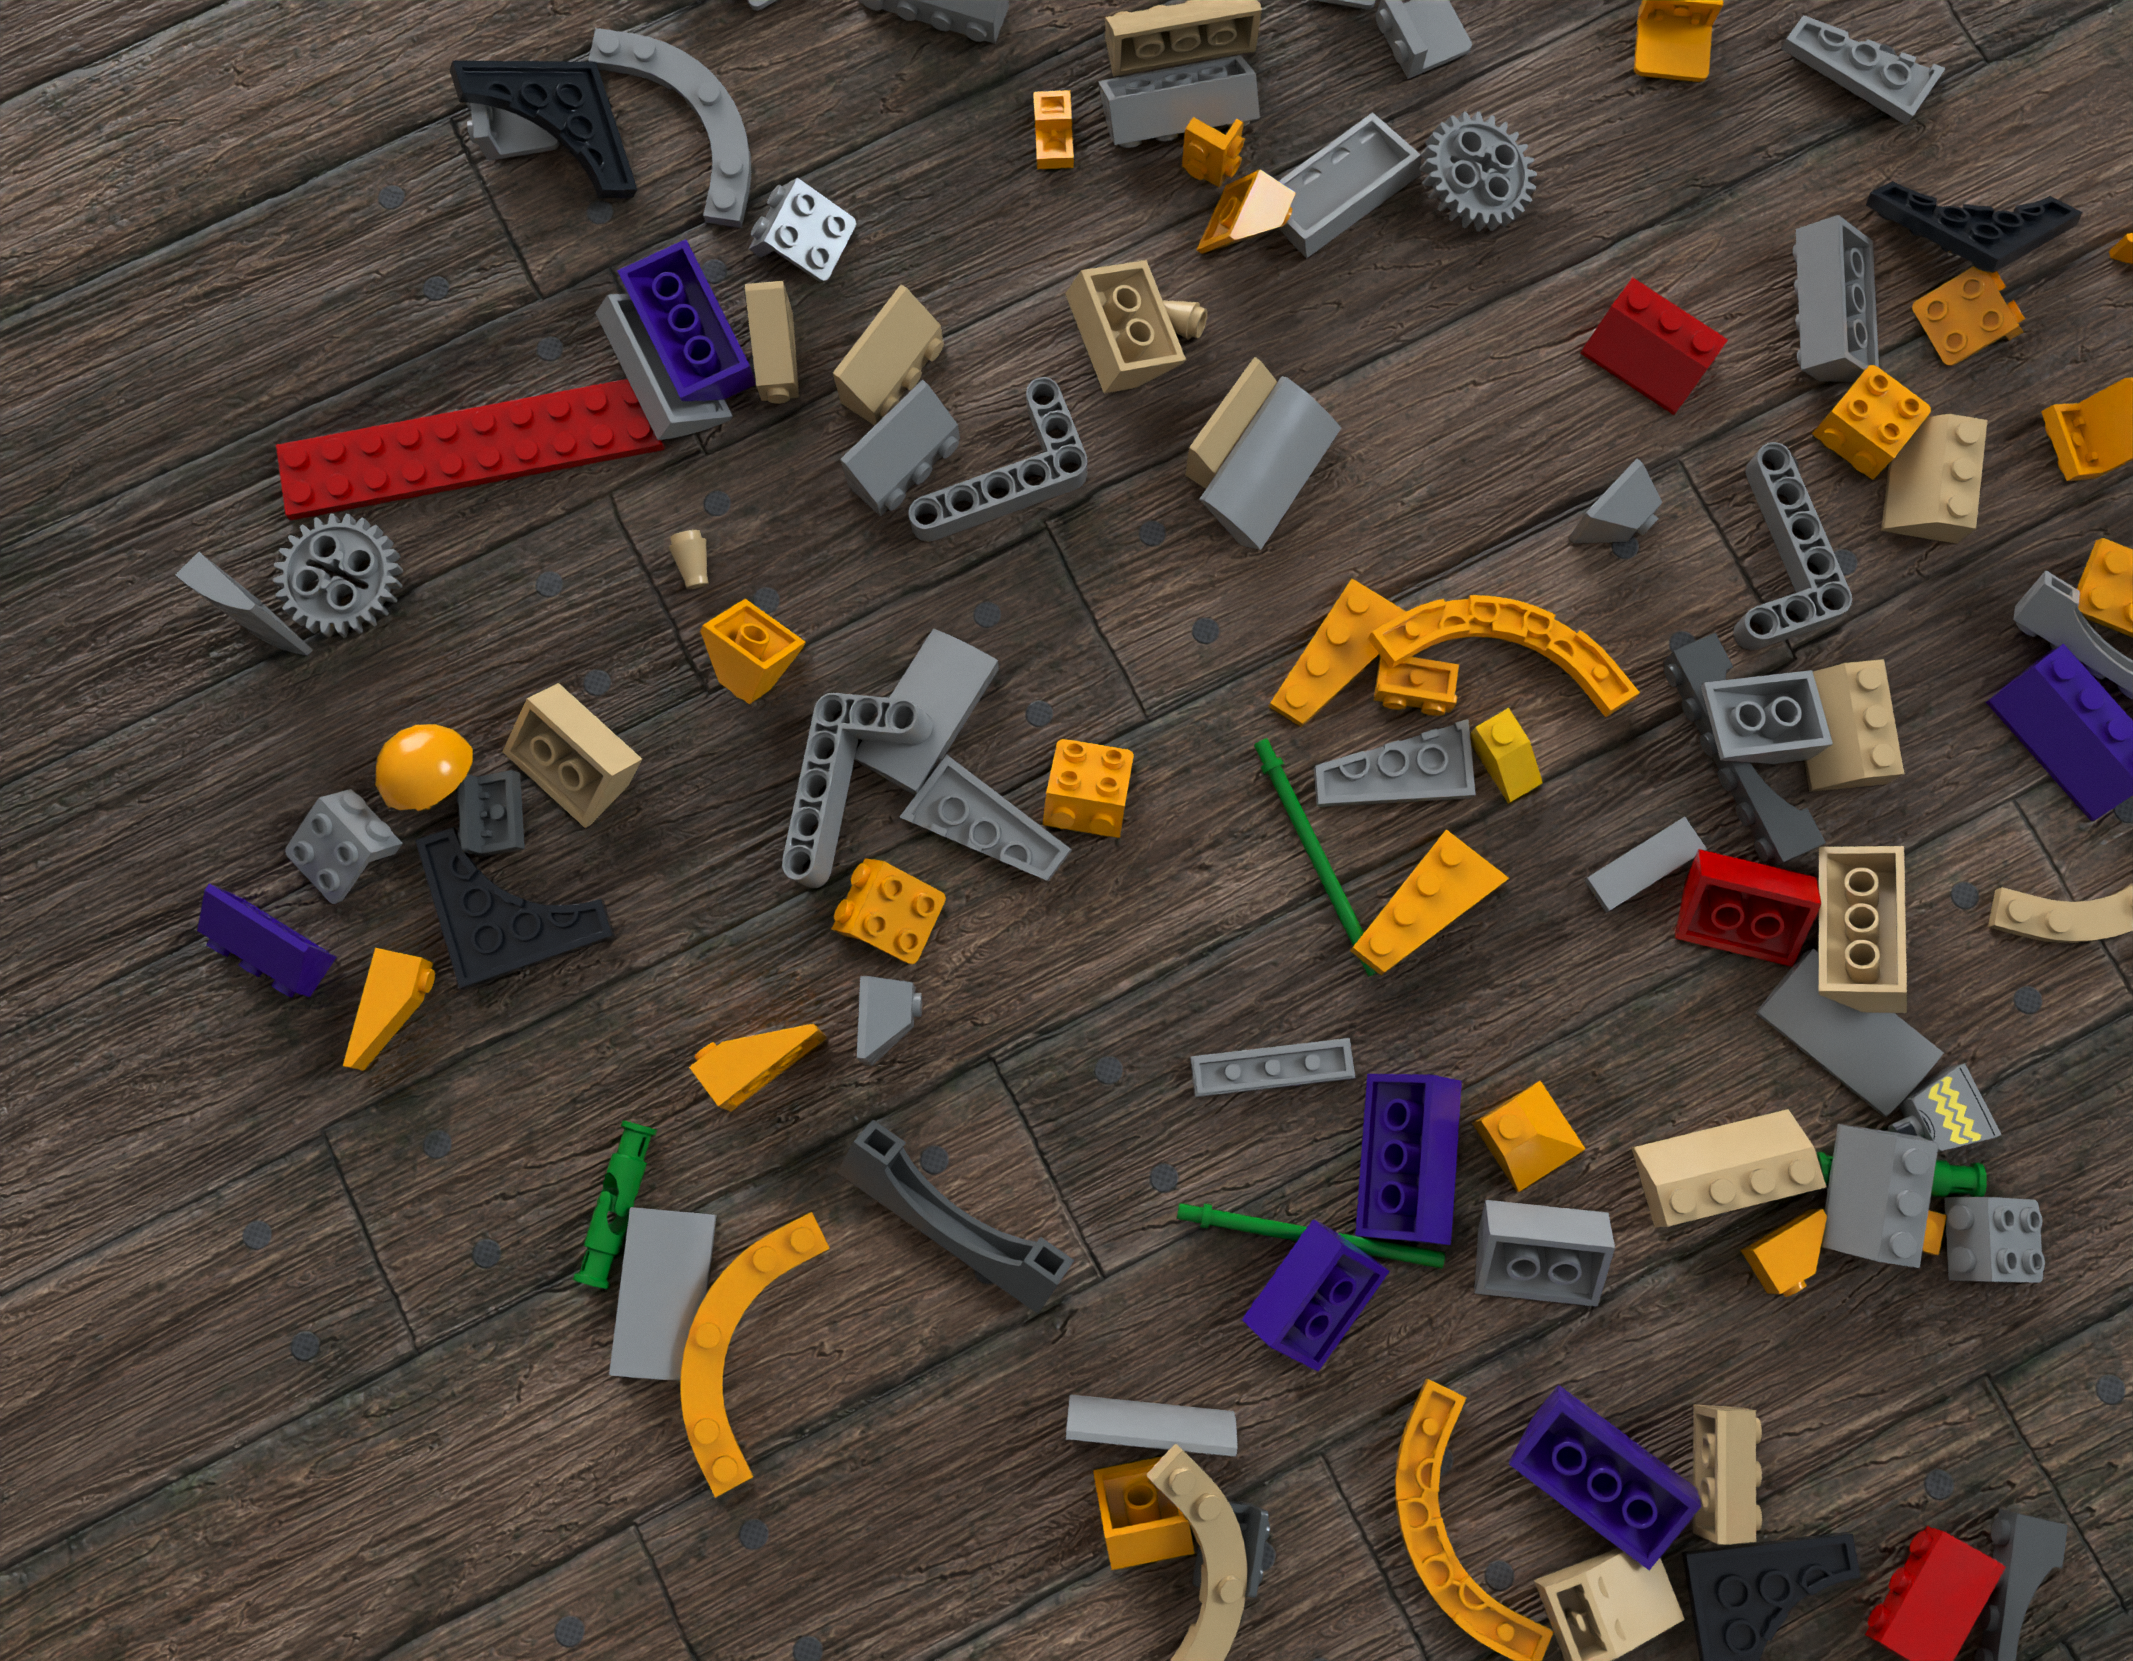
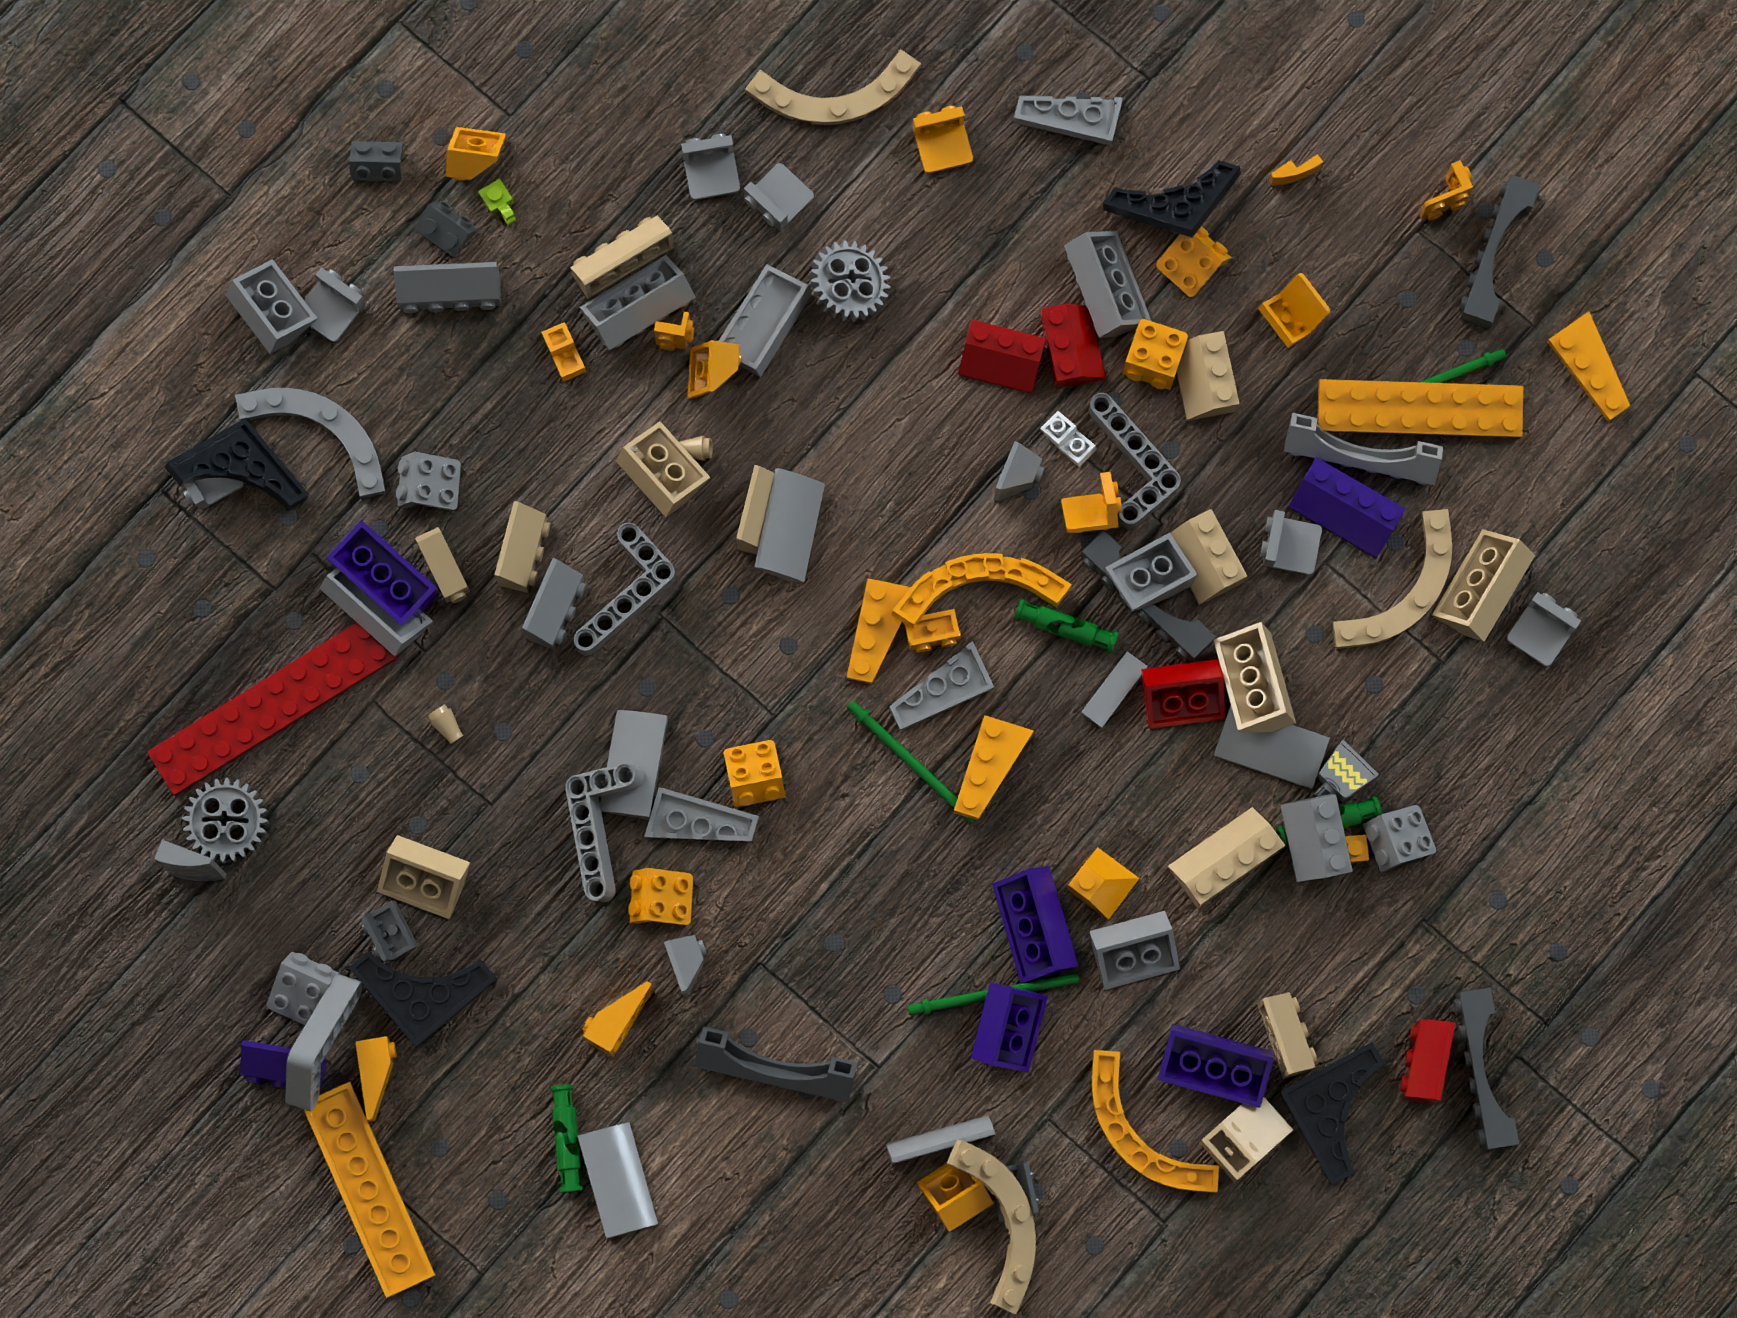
camera: 25 degrees left, 0 degrees up
(297, 929) = (316, 1040): none -> light grey beam
(308, 1169) = (369, 1191): none -> light orange plate
(422, 766) = (335, 920): light orange cylinder -> none
(710, 1337) = (658, 1197): light orange plate -> none
(749, 649) = (508, 767): light orange slope -> none
(1272, 1067) = (933, 902): light grey tile -> none
(1506, 755) = (1004, 655): yellow slope -> none
(1621, 758) = (1072, 628): none -> green piece
(1703, 493) = (1068, 439): none -> white slope
(1713, 604) = (1093, 510): none -> light orange bracket
(1755, 366) = (1071, 345): none -> red slope
(1788, 1253) = (1279, 894): light orange slope -> none
(1976, 754) = (1290, 544): none -> light grey bracket

